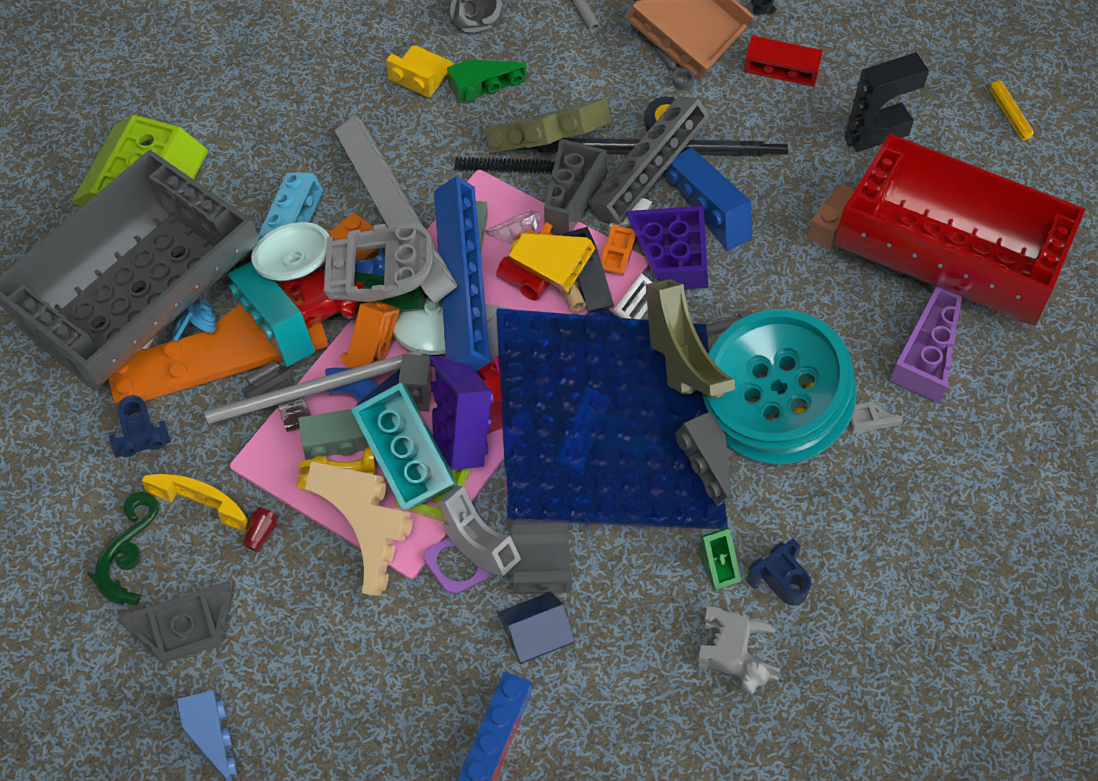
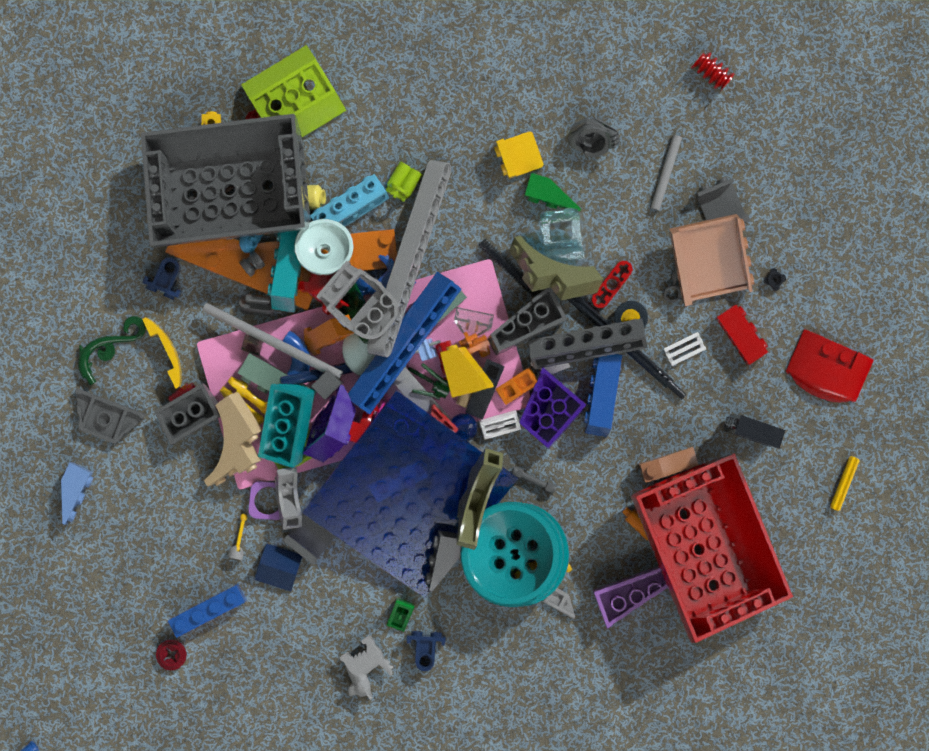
camera: 45 degrees right, 30 degrees up
(225, 336) = (256, 262): none -> dark grey wheel
(279, 534) = (187, 413): none -> dark grey slope
(325, 165) = (403, 181): none -> lime piece
(470, 648) = (236, 551): none -> hinge
(494, 277) = (427, 349): none -> light blue piece
(540, 302) = (440, 386): none -> dark green plant
(548, 101) = (562, 249): none -> clear light blue window
(623, 102) = (625, 276): none -> red beam
(749, 98) = (699, 341): none -> white tile
(867, 283) = (634, 520): none -> orange cylinder
(887, 33) = (828, 368): none -> red slope

